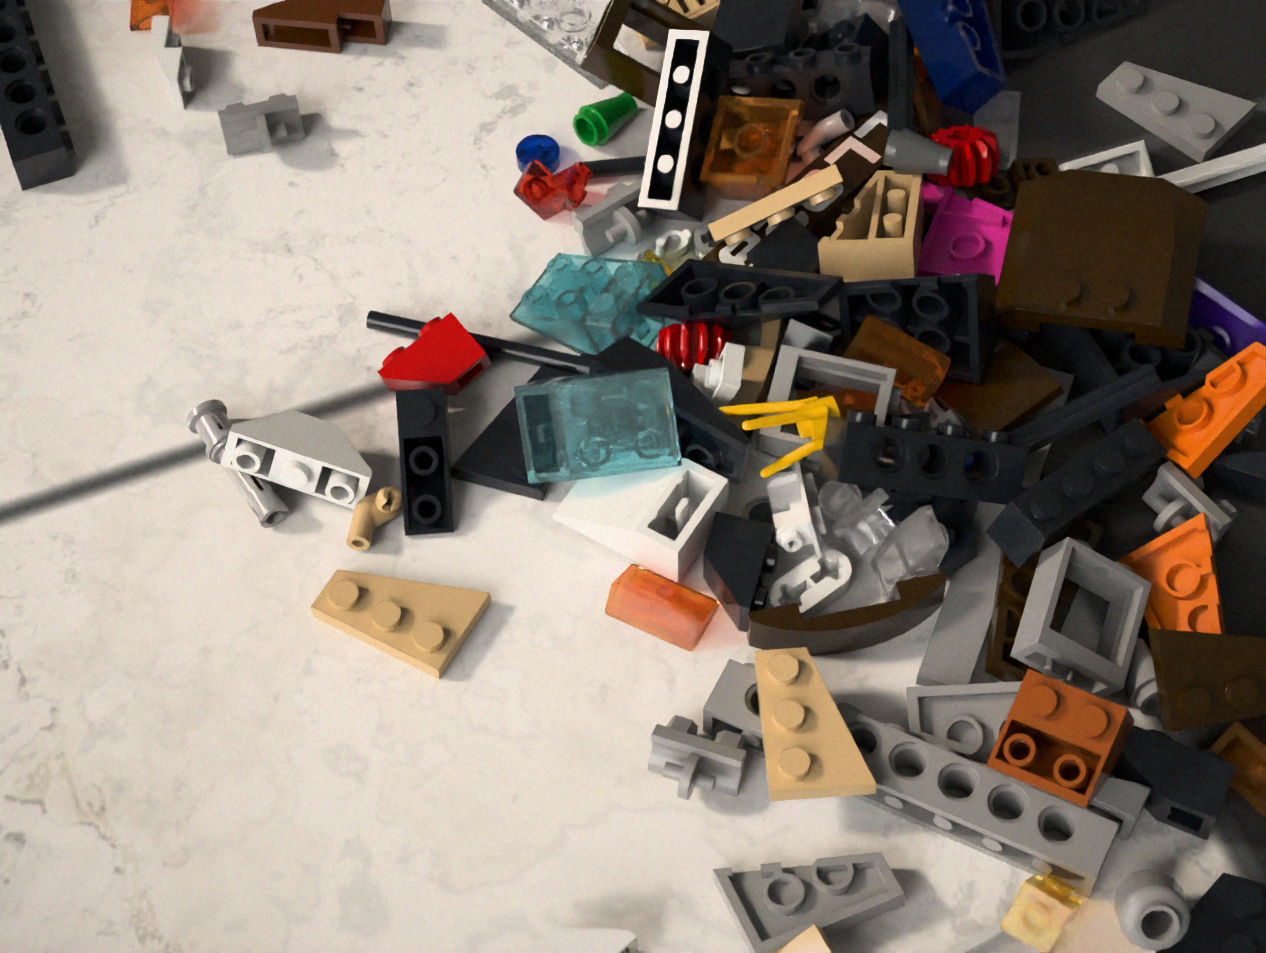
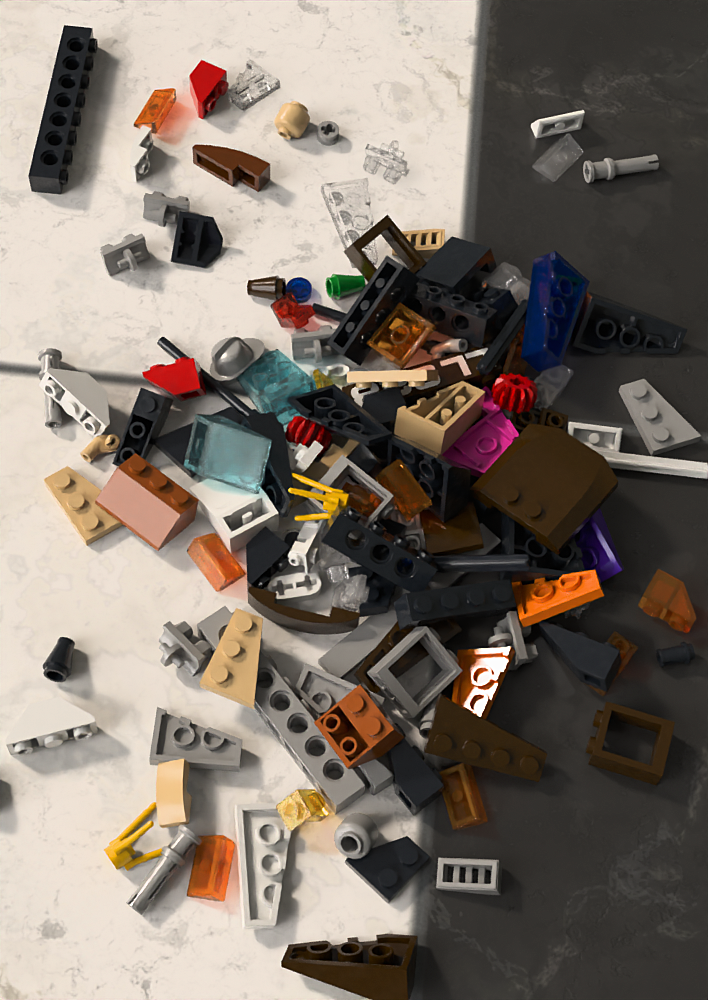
camera: 20 degrees right, 5 degrees up
(237, 215) = (125, 254): none -> light grey hips
(336, 148) = (196, 240): none -> black slope
(490, 171) = (267, 287): none -> dark brown cone
(503, 292) = (234, 356): none -> light grey piece
(505, 562) = (147, 502): none -> slope
(511, 875) = (59, 662): none -> black cone
(914, 153) = (483, 381): dark grey cone -> none

